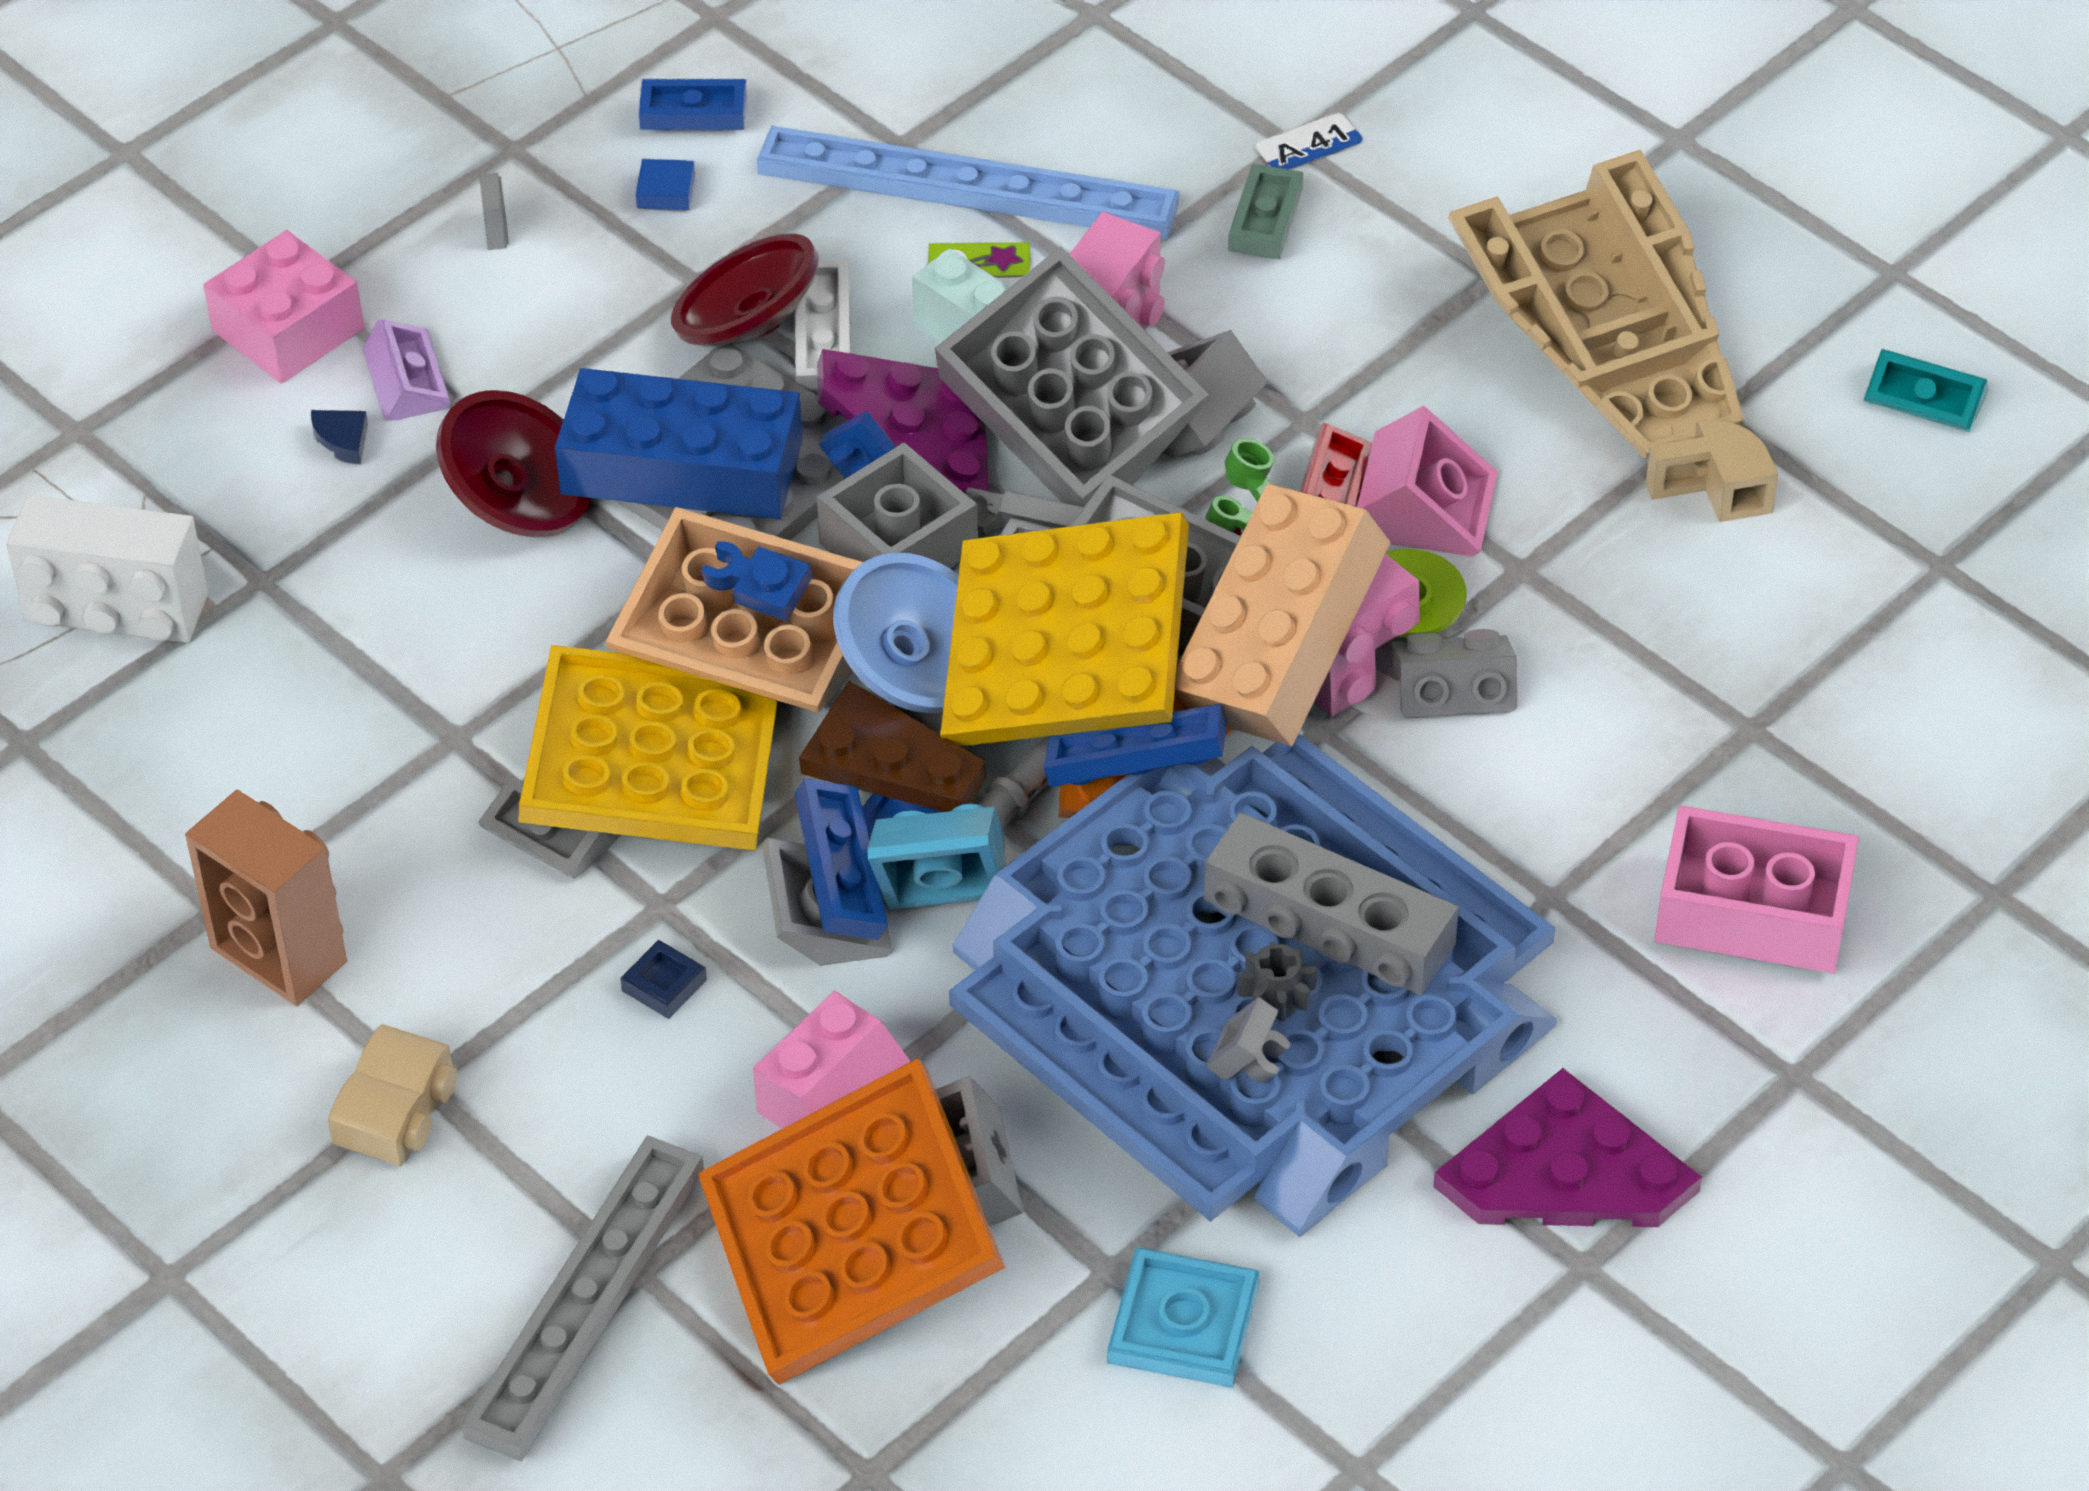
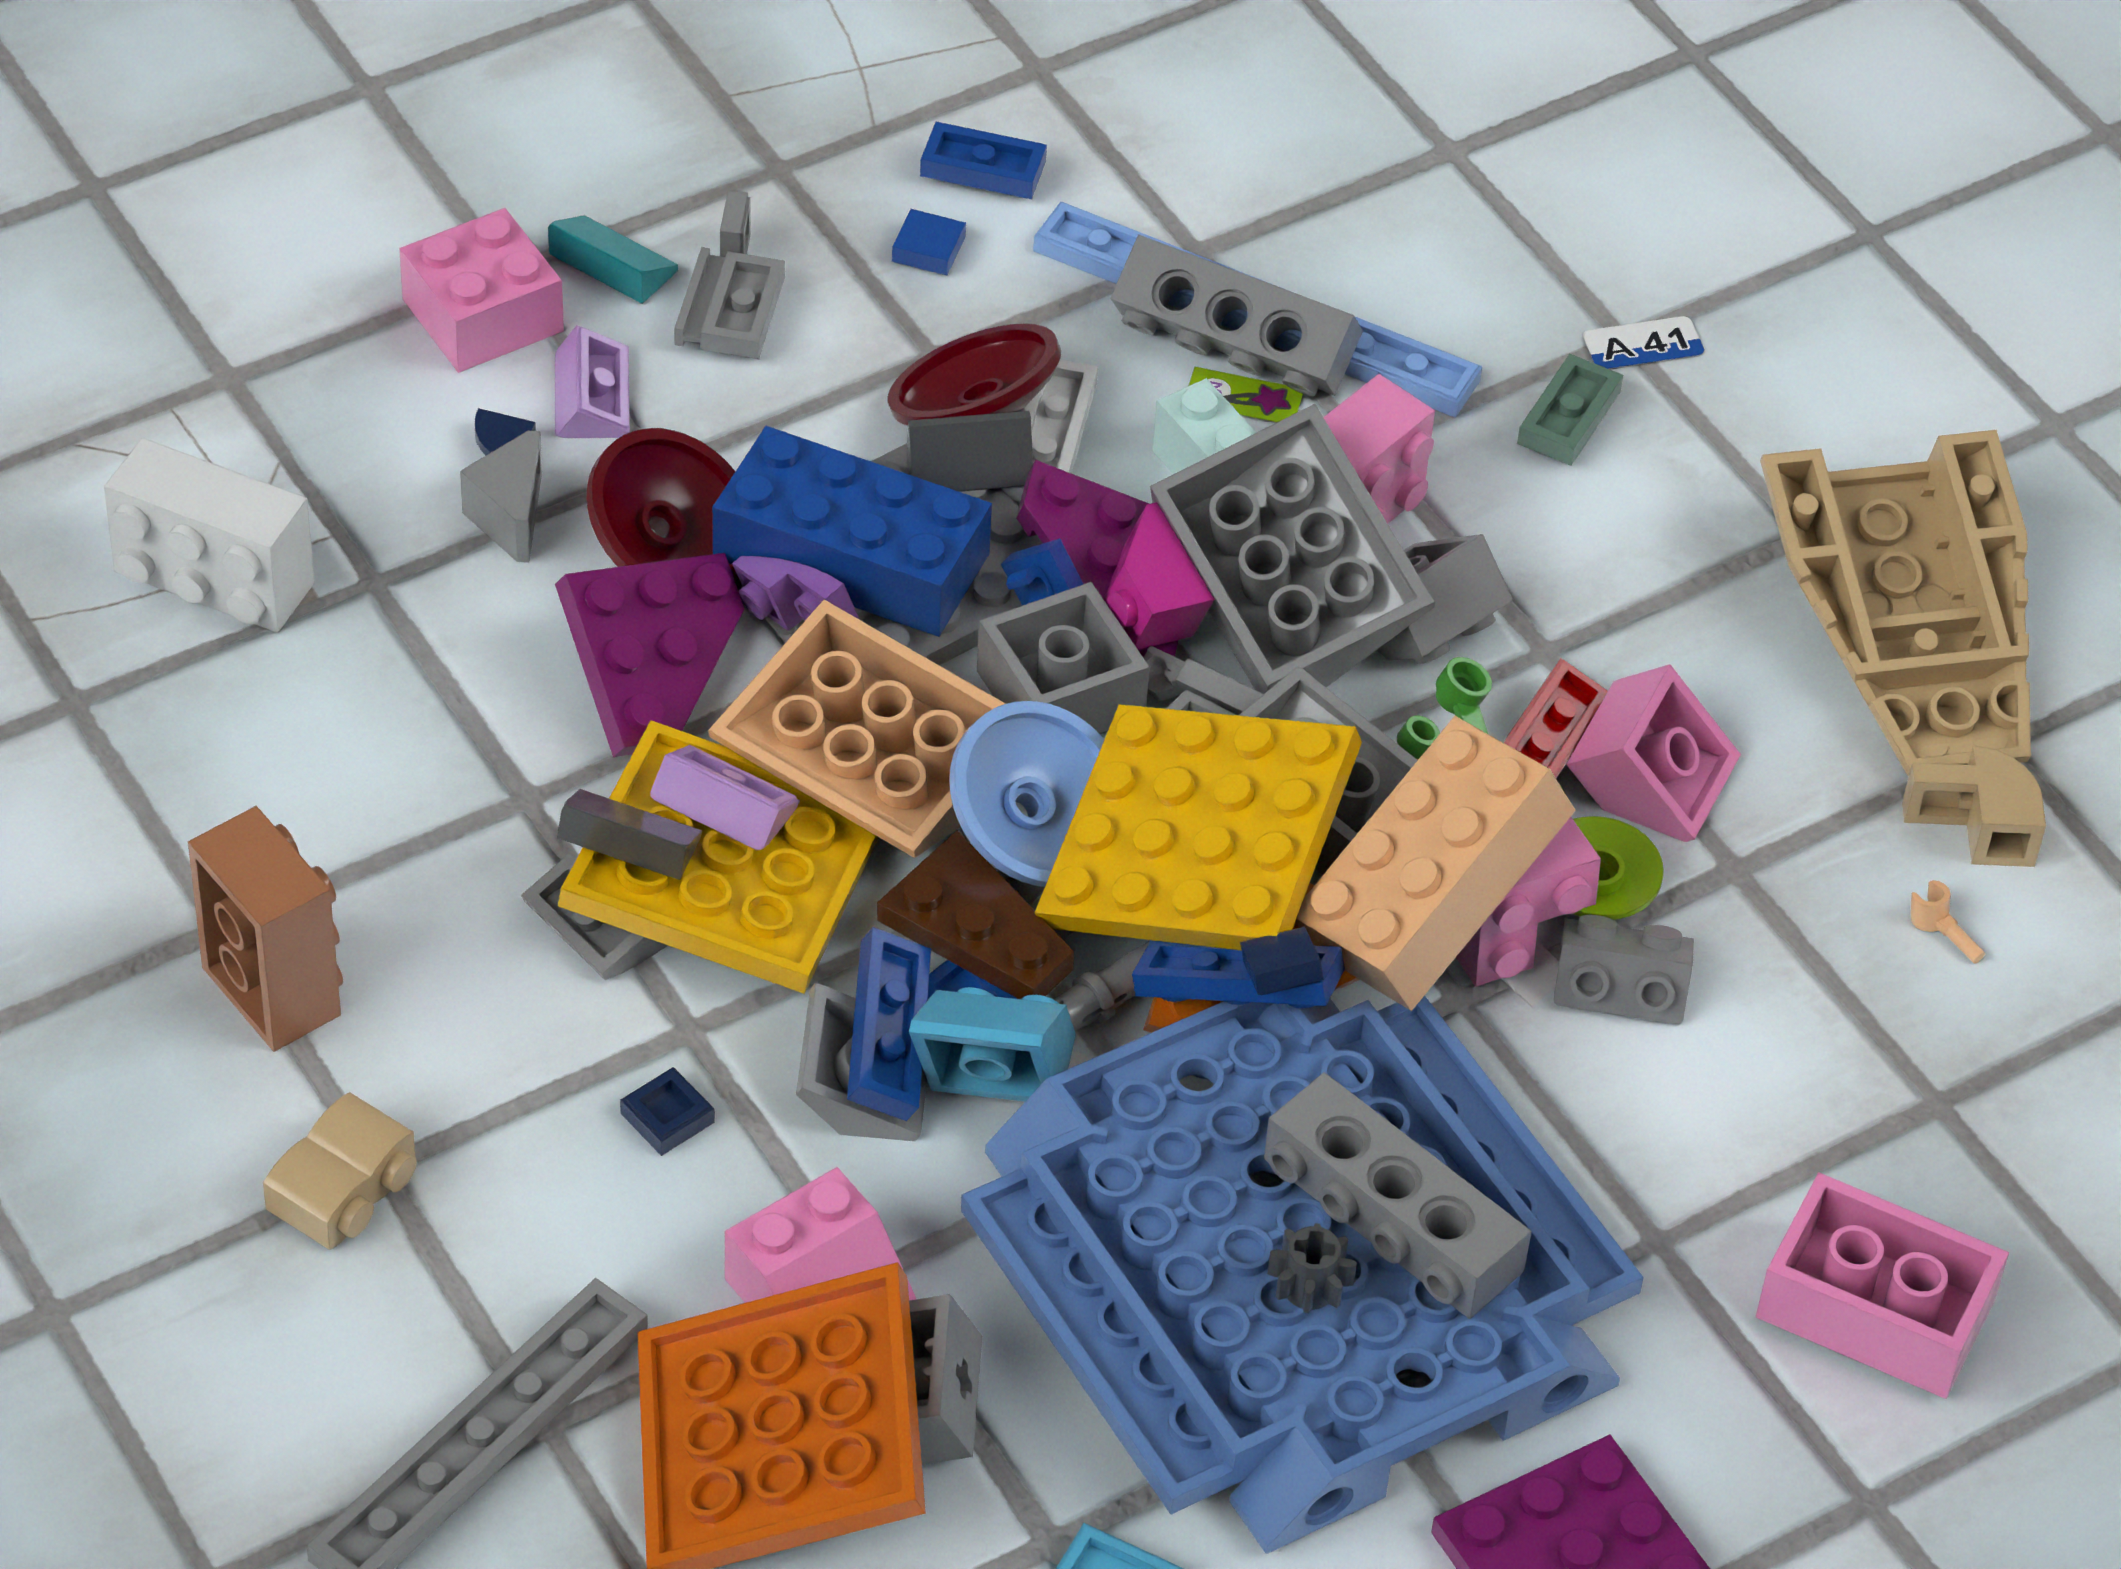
camera: 10 degrees right, 0 degrees up
(355, 479) = (503, 493): none -> light grey slope
(387, 255) = (609, 257): none -> teal slope
(507, 272) = (730, 303): none -> light grey plate
(527, 575) = (650, 638): none -> magenta plate
(564, 745) = (628, 833): none -> dark grey slope
(635, 696) = (722, 796): none -> lavender slope
(636, 507) = (787, 589): none -> medium lavender slope
(763, 583) = (891, 703): blue plate -> none
(764, 352) = (971, 450): none -> dark grey slope
(880, 164) = (1159, 271): none -> light grey brick
(960, 431) = (1156, 585): none -> dark pink slope
(1175, 726) = (1281, 961): none -> dark blue tile
(1244, 1041) = (1255, 1326): light grey tile -> none
(1701, 571) = (1935, 916): none -> light nougat hand

